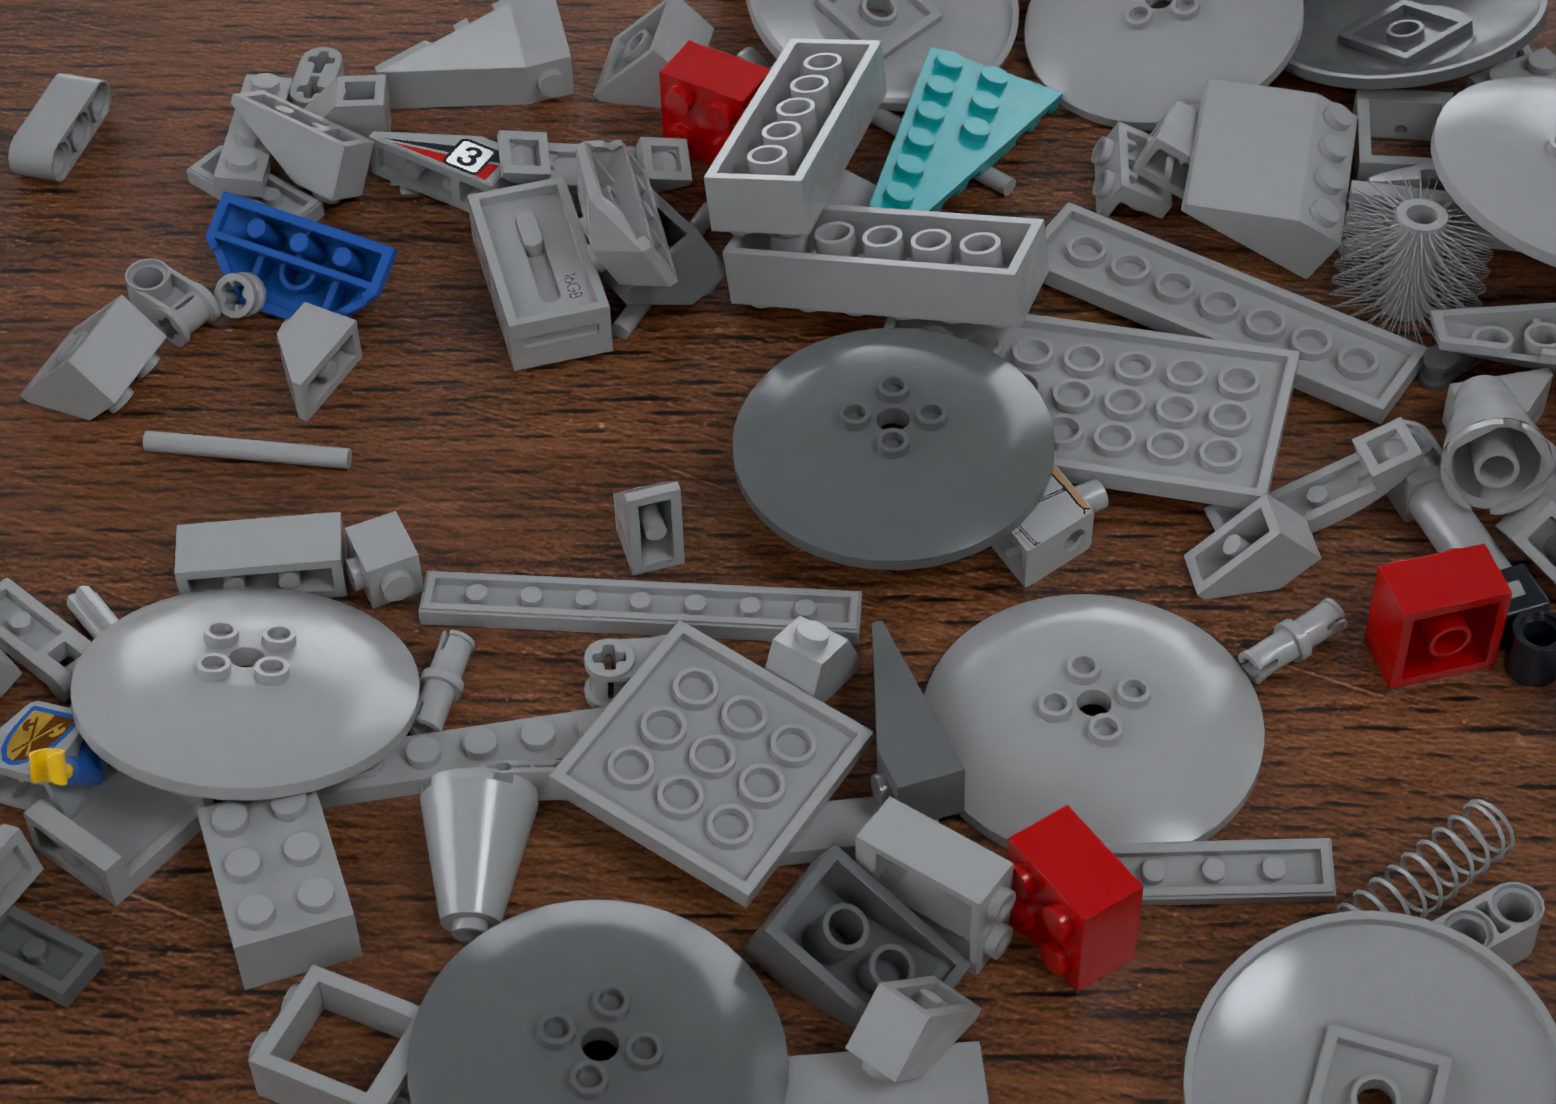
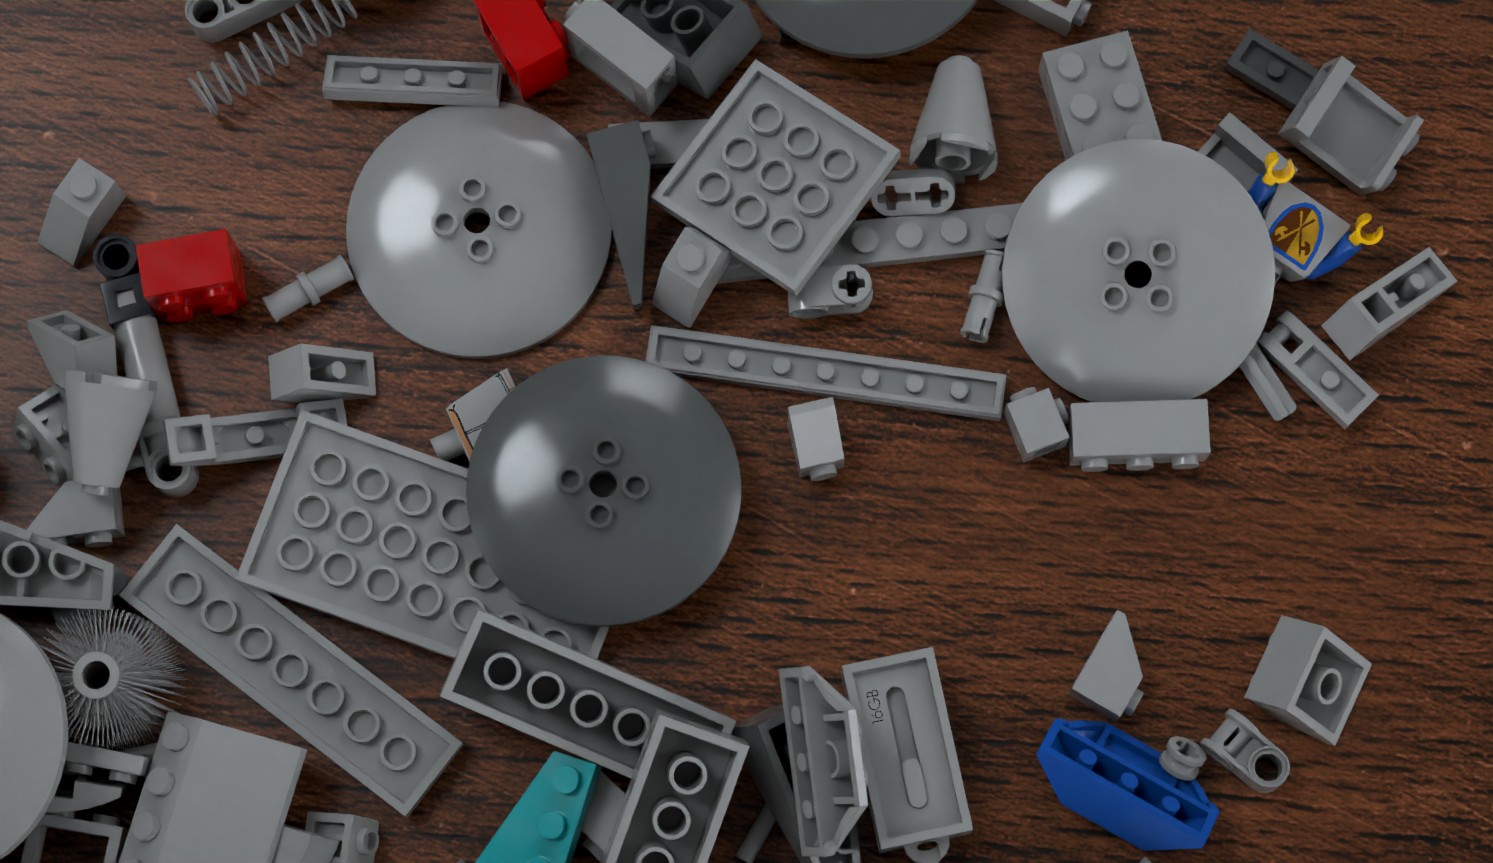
camera: 175 degrees left, 30 degrees up
(247, 449) = (1162, 576): light grey bar -> none

